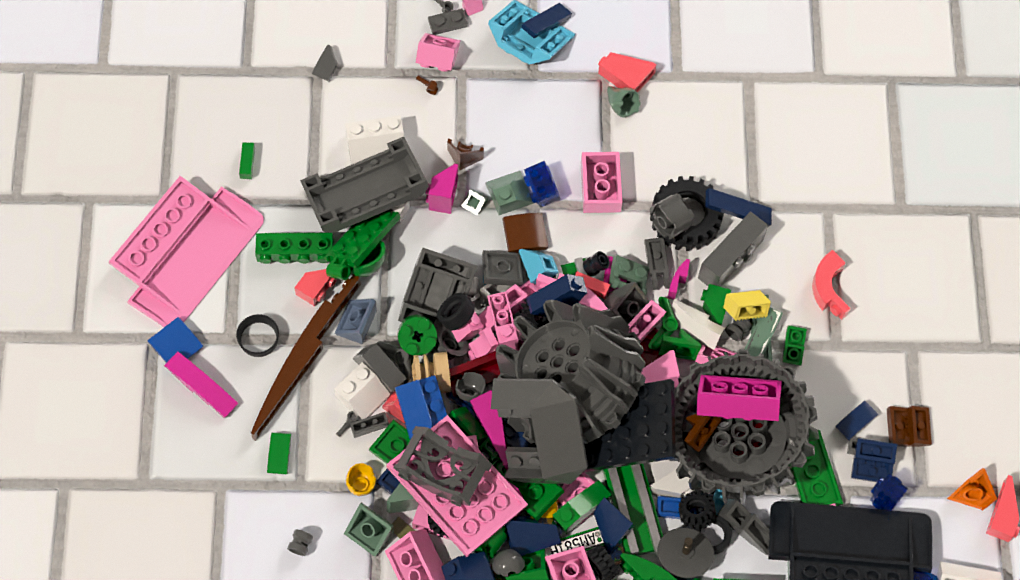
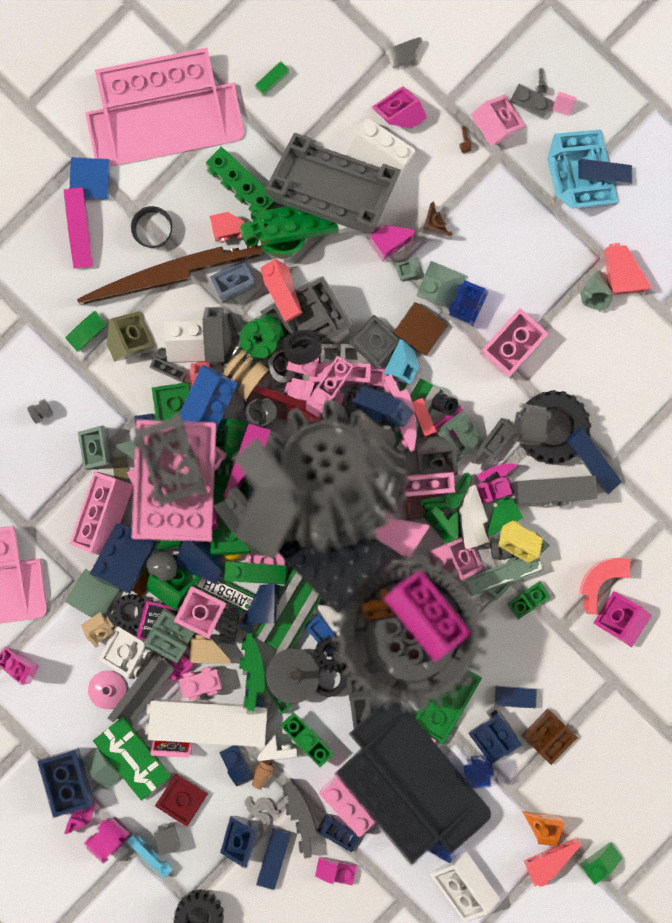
camera: 45 degrees right, 20 degrees up
(315, 428) = (128, 336): none -> olive slope
(360, 479) = (122, 406): yellow hair -> none
(362, 99) = (401, 109): none -> dark pink slope
(399, 289) = (281, 287): none -> coral slope
(691, 291) = (494, 489): none -> dark pink slope
(871, 296) = (622, 619): none -> dark pink slope

